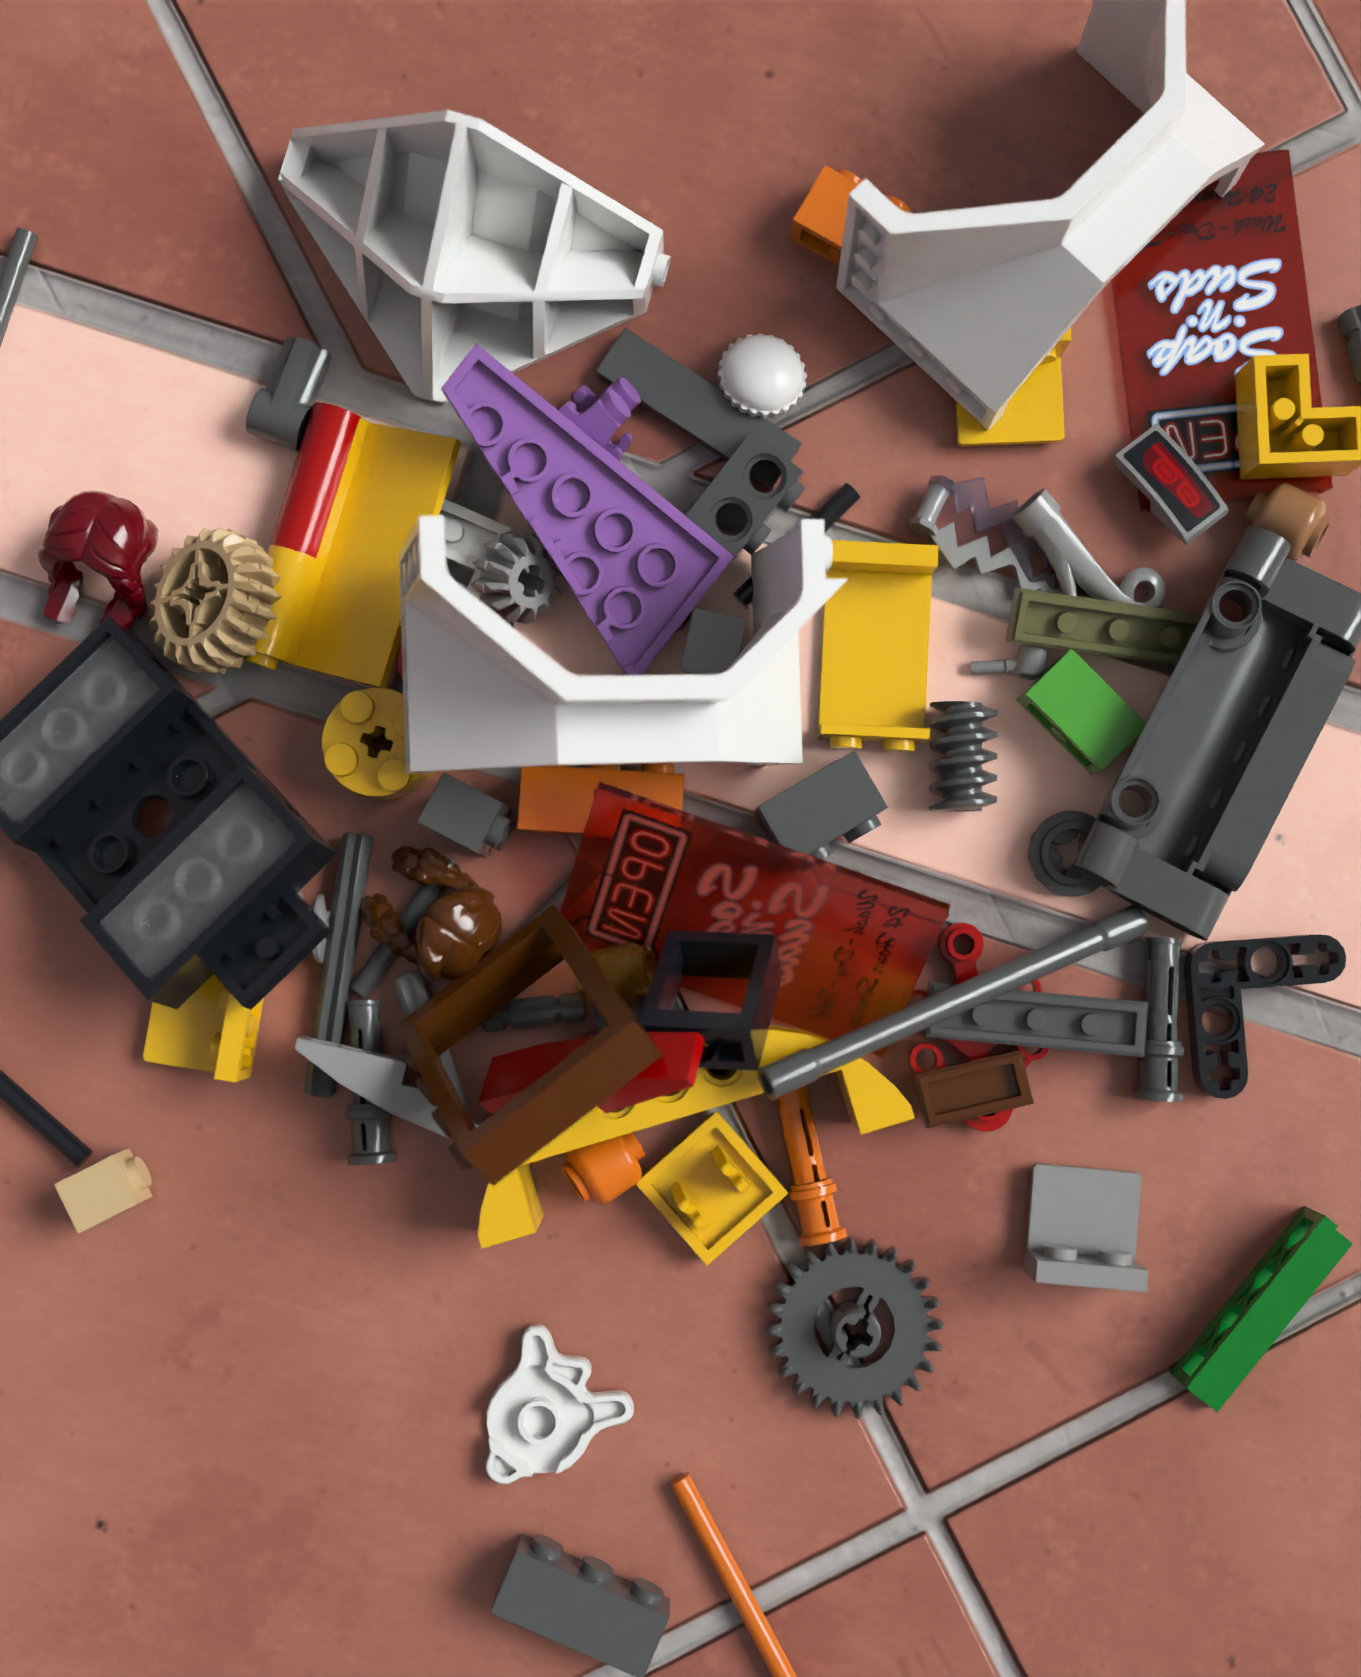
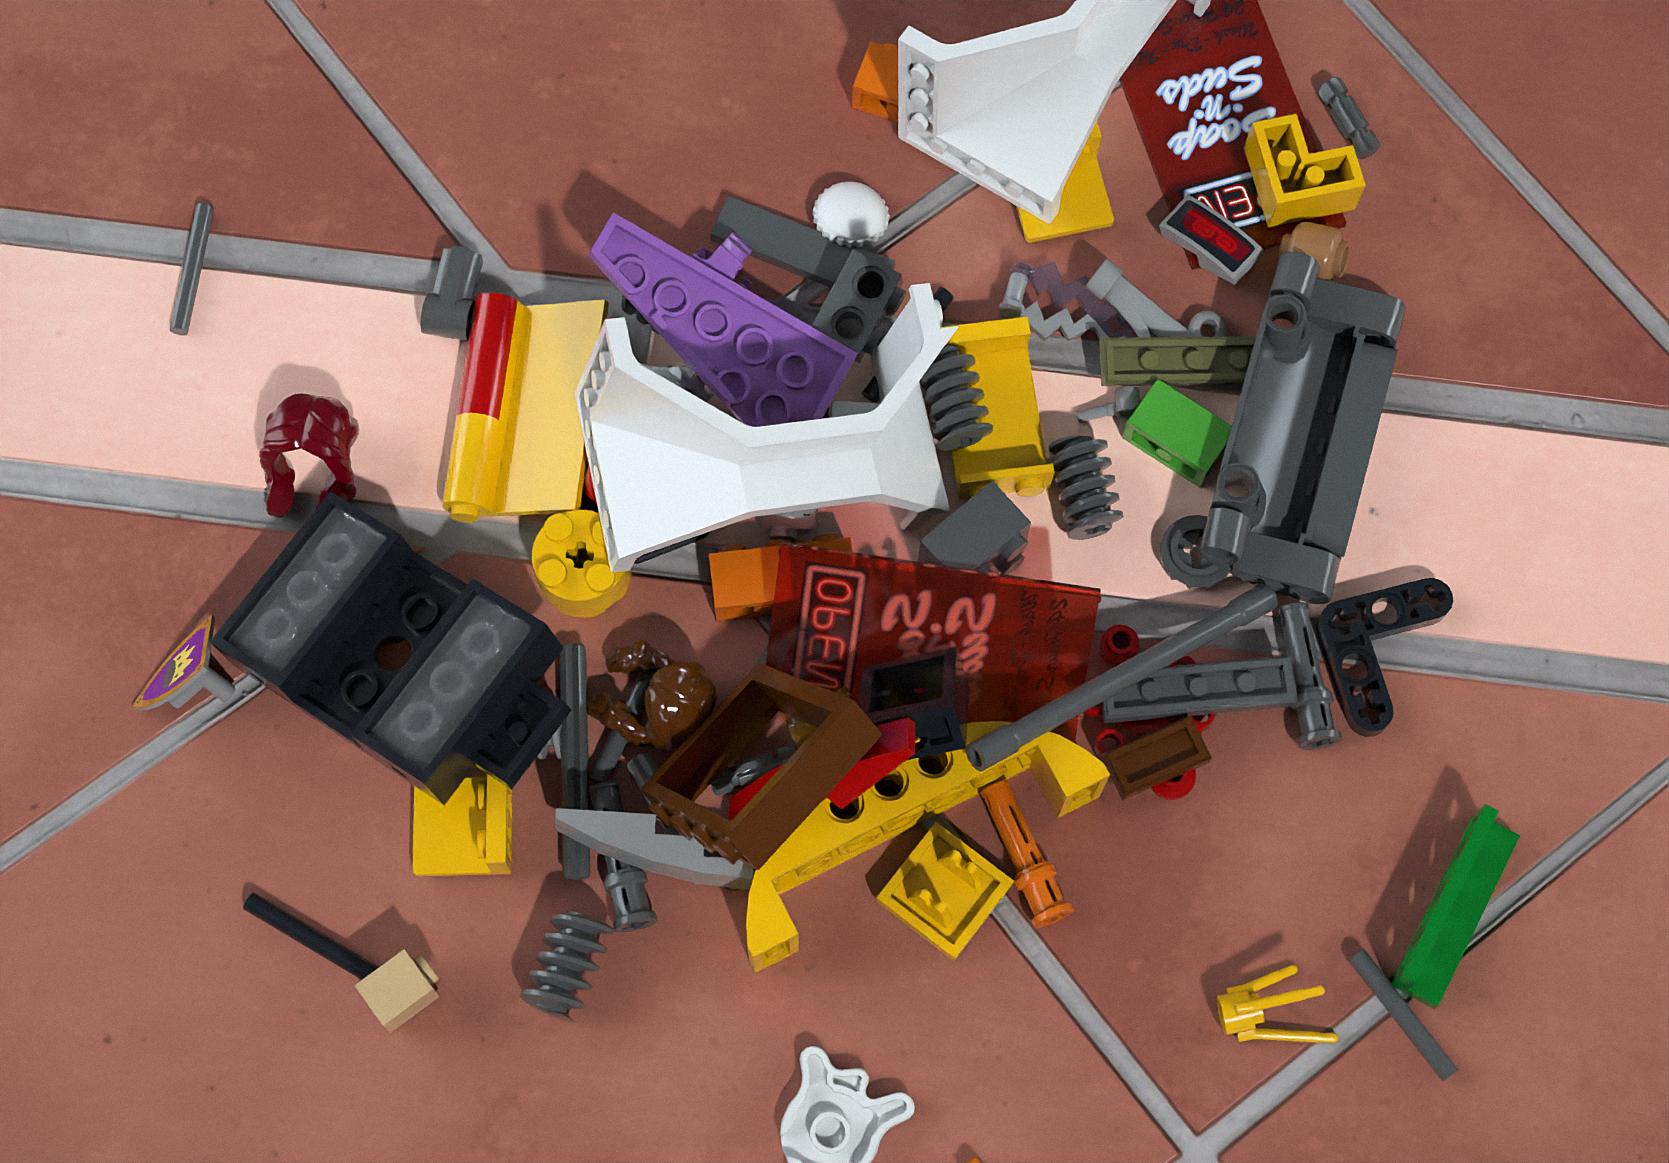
camera: 15 degrees left, 15 degrees down
(214, 601) = (423, 469): tan gear -> none
(291, 1194) = (565, 964): none -> dark grey piece
(467, 241) = (579, 133): white panel -> none
(467, 816) = (670, 604): dark grey brick -> none
(604, 1168) = (844, 887): orange head -> none
(830, 1374) = (1110, 947): dark grey gear -> none
(836, 634) = (953, 401): none -> dark grey piece
(1006, 1382) = (1242, 1011): none -> yellow plant
(1084, 1228) = (1281, 863): light grey bracket -> none
(1176, 1410) = (1403, 1015): none -> dark grey bar

